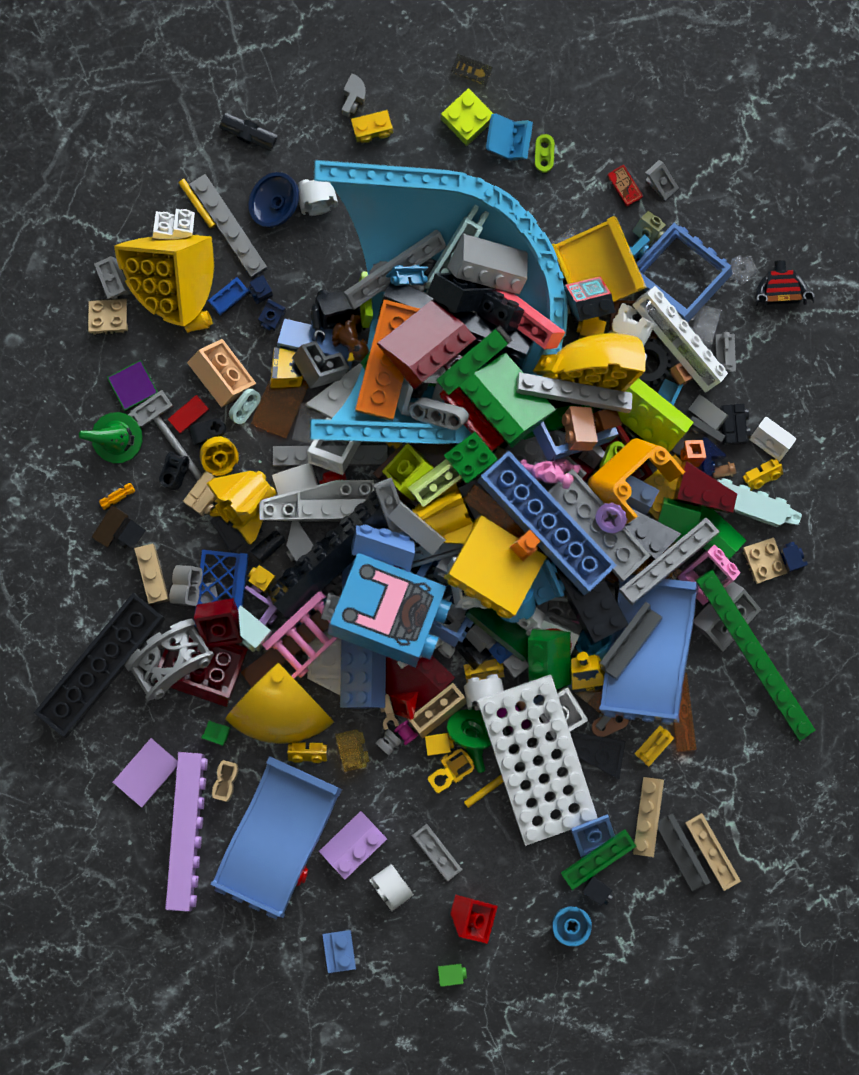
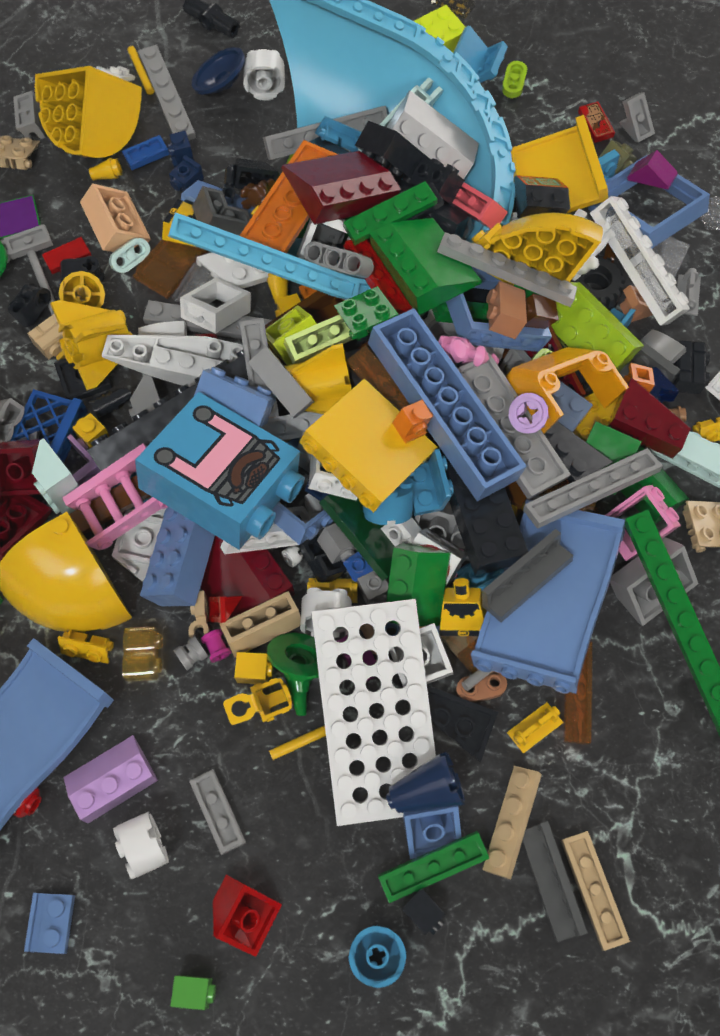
camera: 15 degrees right, 15 degrees down
(585, 808) = (427, 787): none -> dark blue cone
(681, 247) = (653, 171): none -> magenta slope

